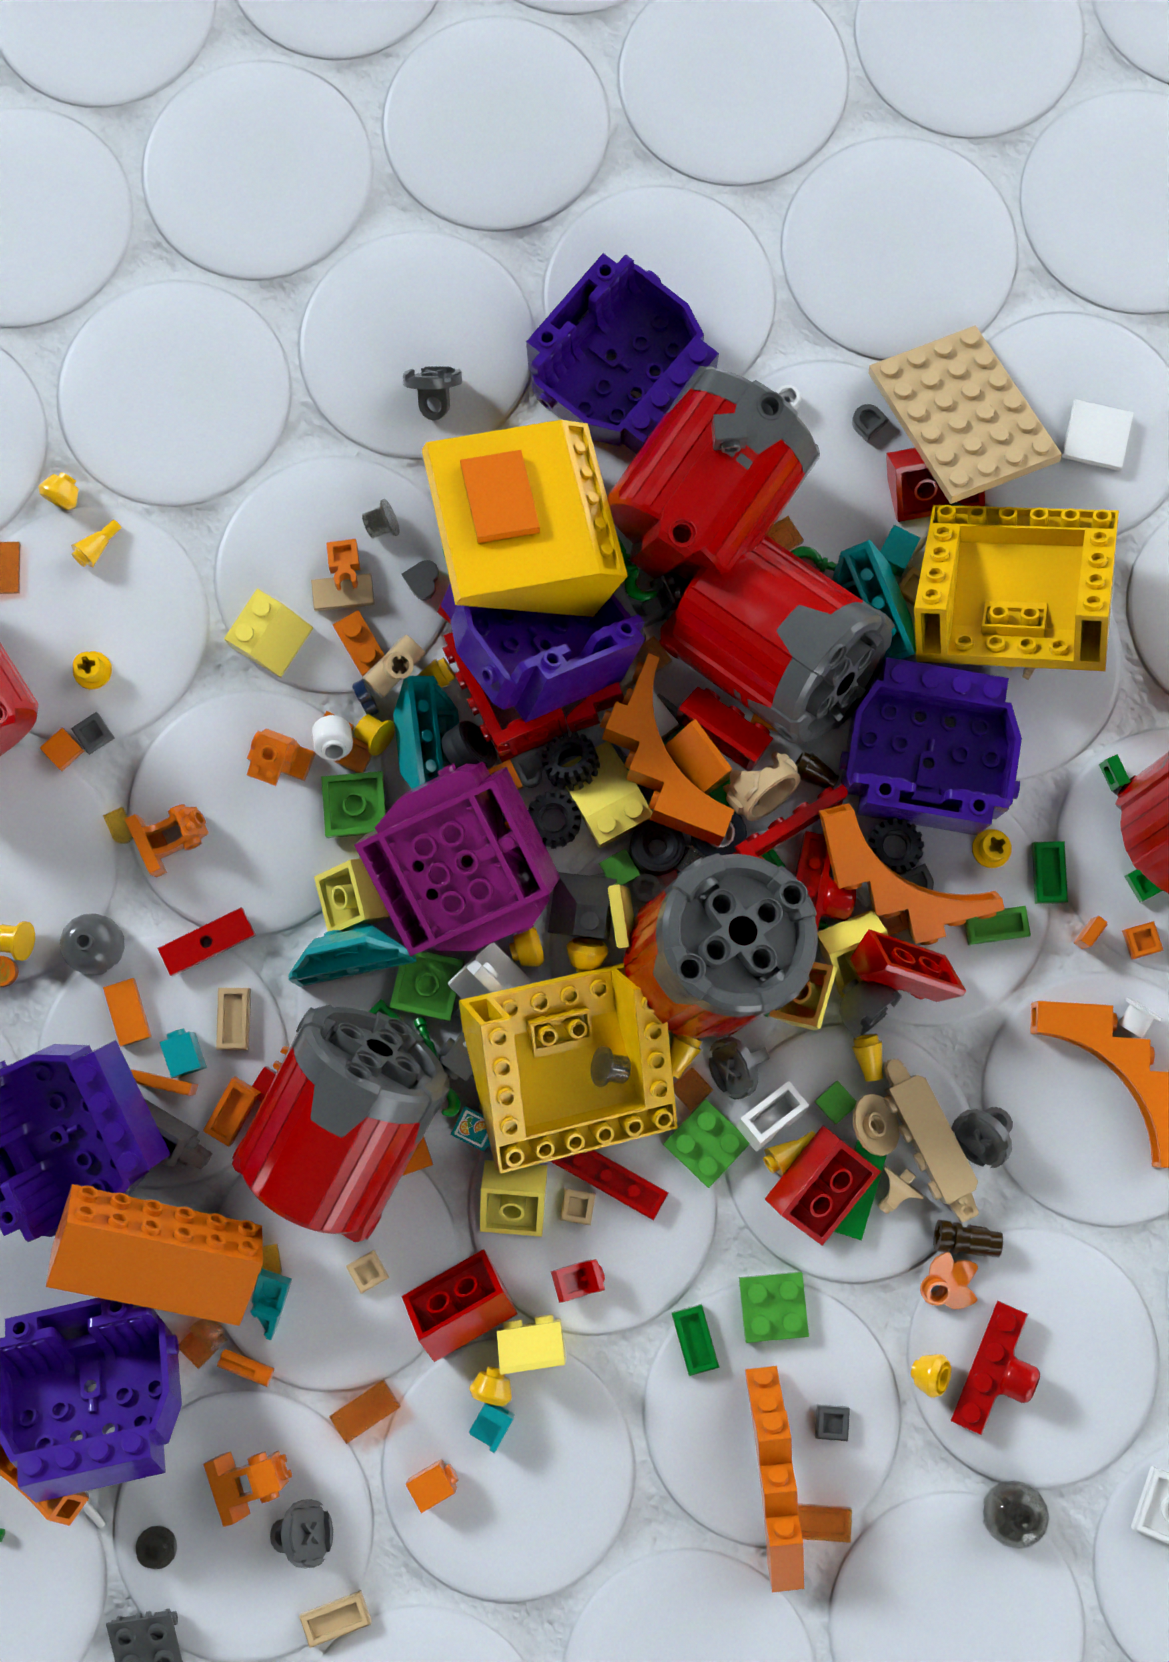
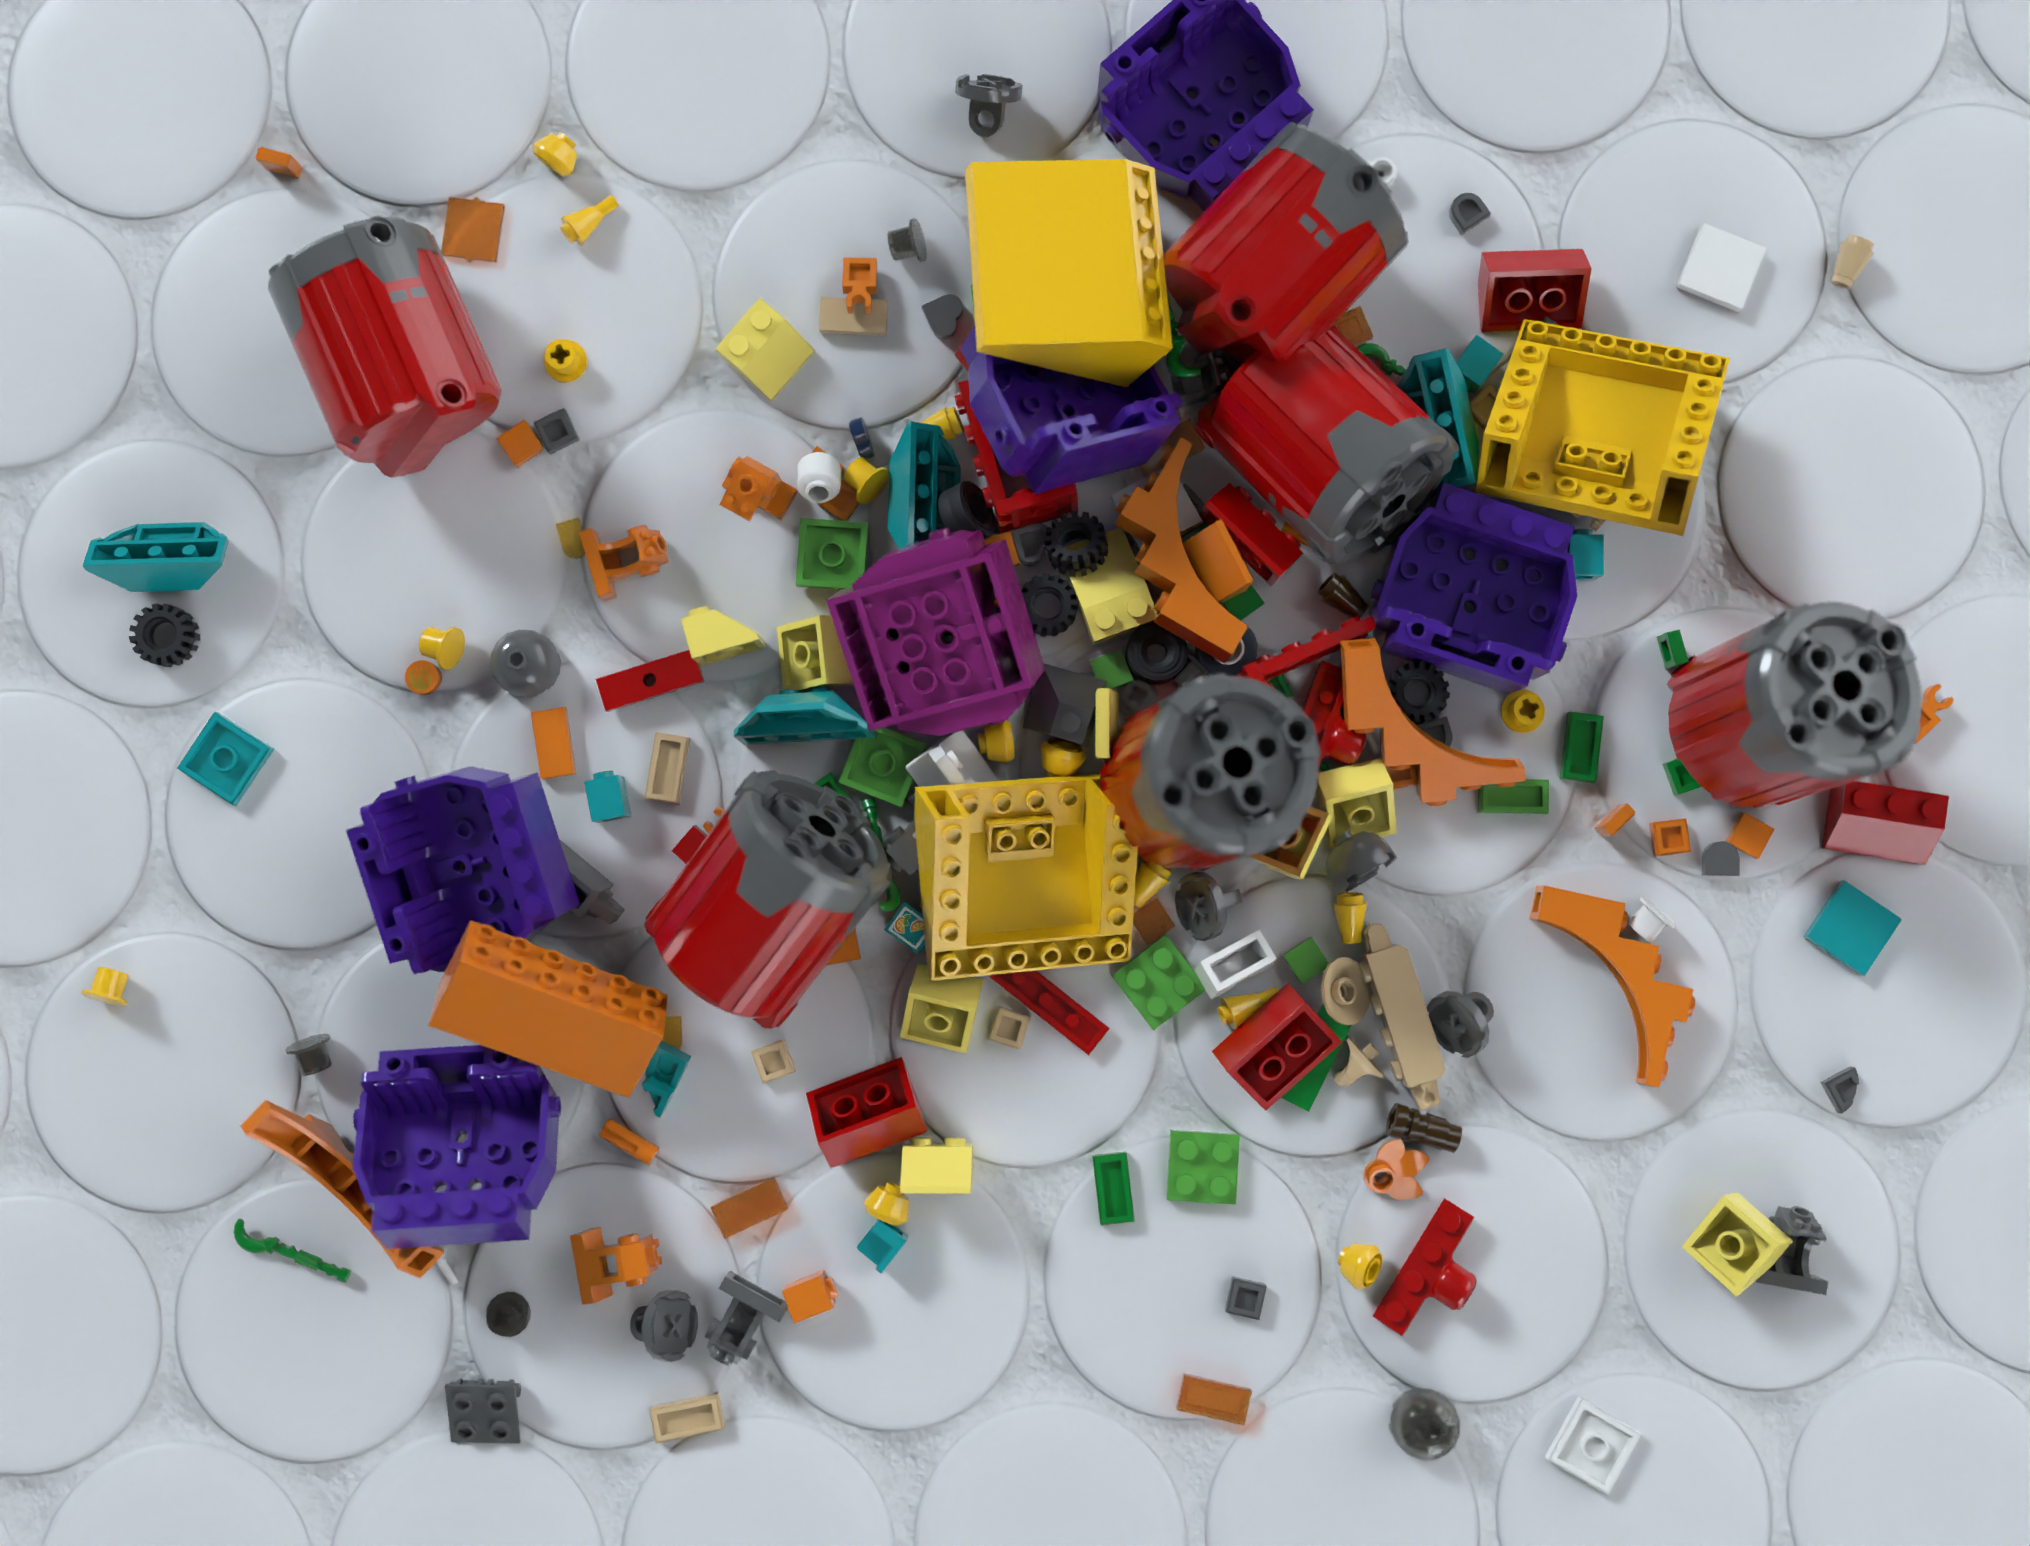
camera: 10 degrees right, 5 degrees up
(164, 1083) = (583, 826): orange tile -> none
(202, 1341) = (587, 1107): clear orange bracket -> none
(231, 1111) = (652, 868): orange tile -> none
(262, 893) = (717, 636): none -> light yellow slope
(359, 641) = (864, 377): orange plate -> none
(363, 1542) = (729, 1344): none -> dark grey tile
(394, 665) = (898, 408): tan connector -> none
(499, 496) = (1044, 236): orange tile -> none
(578, 1280) = (998, 1106): red bracket -> none
(586, 713) = (1101, 493): red slope -> none
(609, 1067) = (1067, 885): clear smoke piece -> none
(729, 432) = (1312, 204): dark grey plate -> none
(768, 787) = (1286, 606): tan piece -> none
(777, 1479) = (1177, 1347): orange arch -> none
(906, 967) = (1407, 827): red slope -> none
(964, 414) = (1576, 221): tan plate -> none
(1024, 701) = (1587, 554): none -> teal brick

